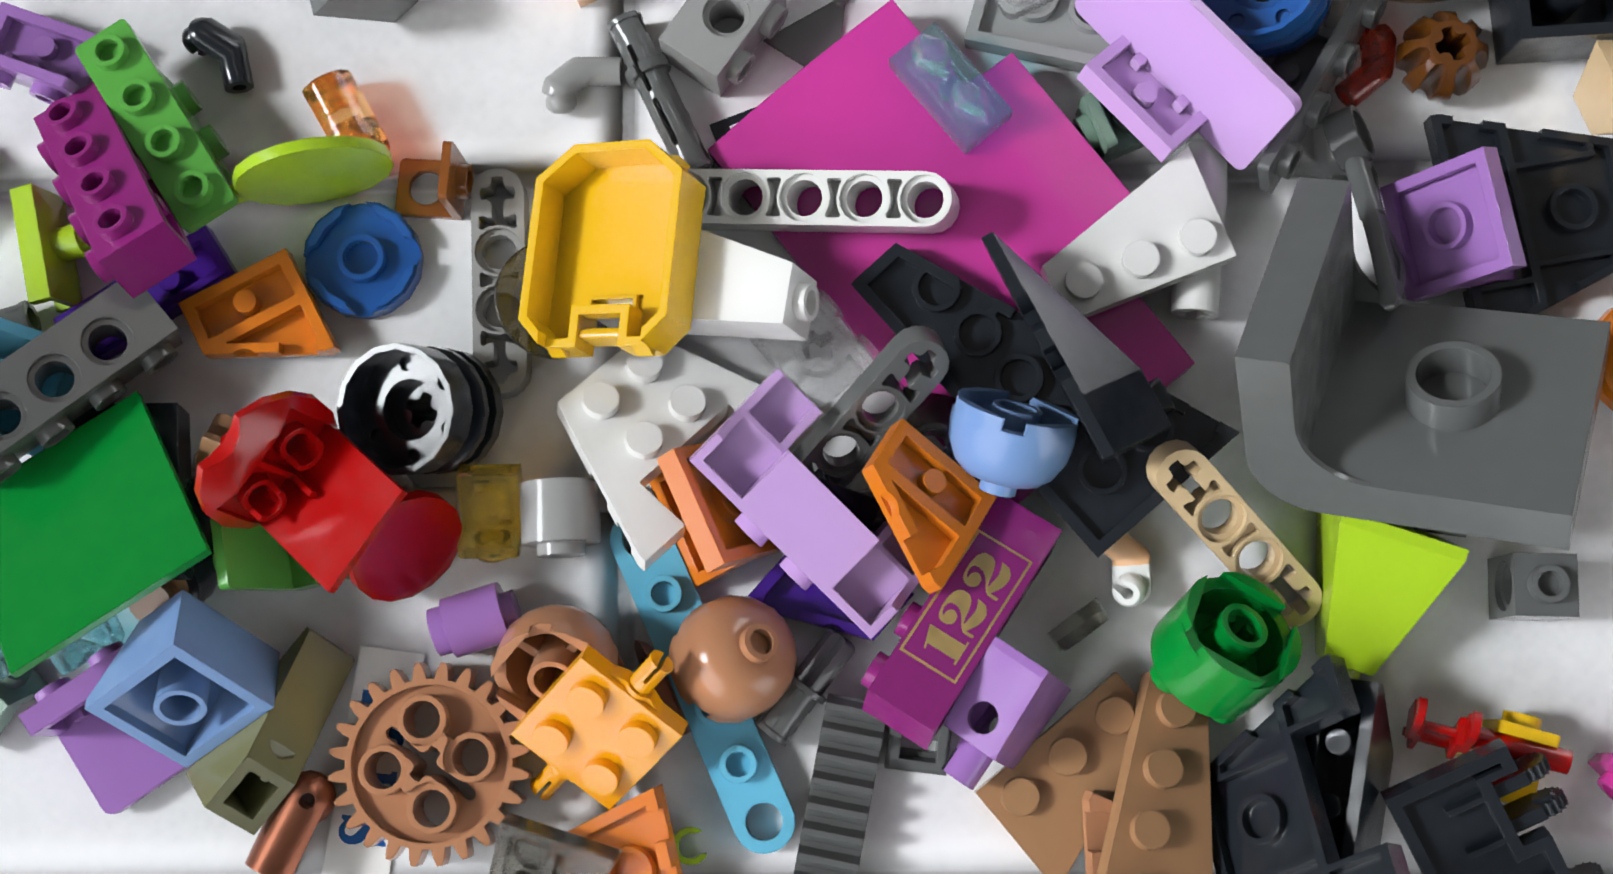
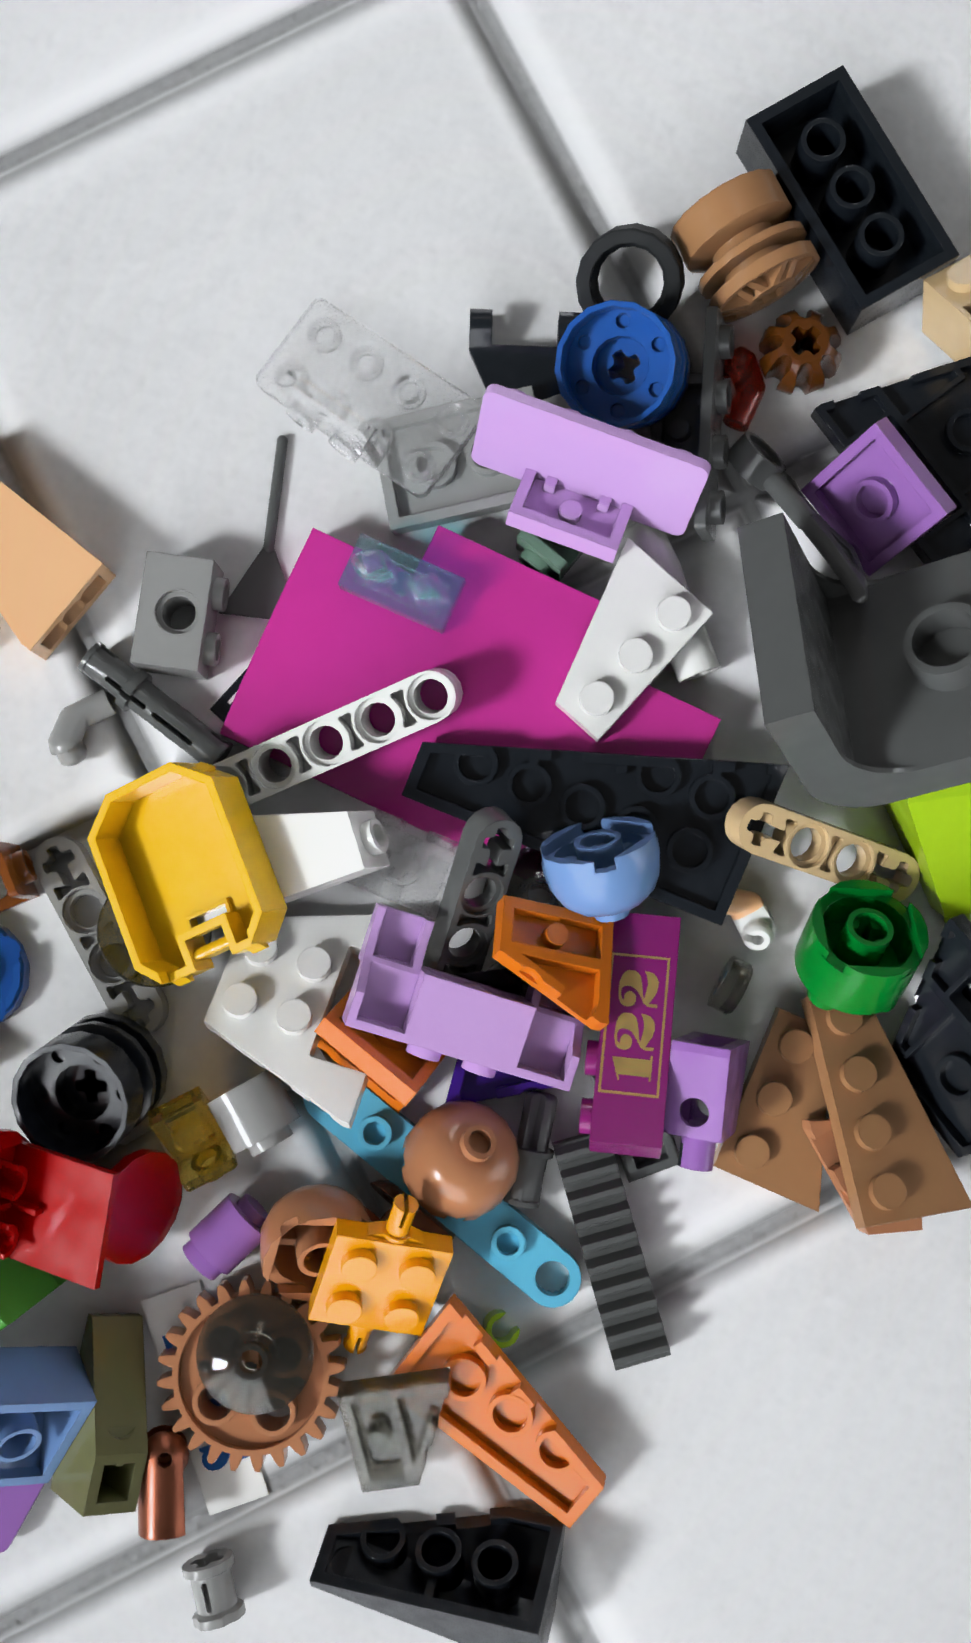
camera: 30 degrees left, 5 degrees up
(475, 746) = (272, 1330): none -> clear smoke dish
(1096, 377) = (657, 787): black wedge -> none

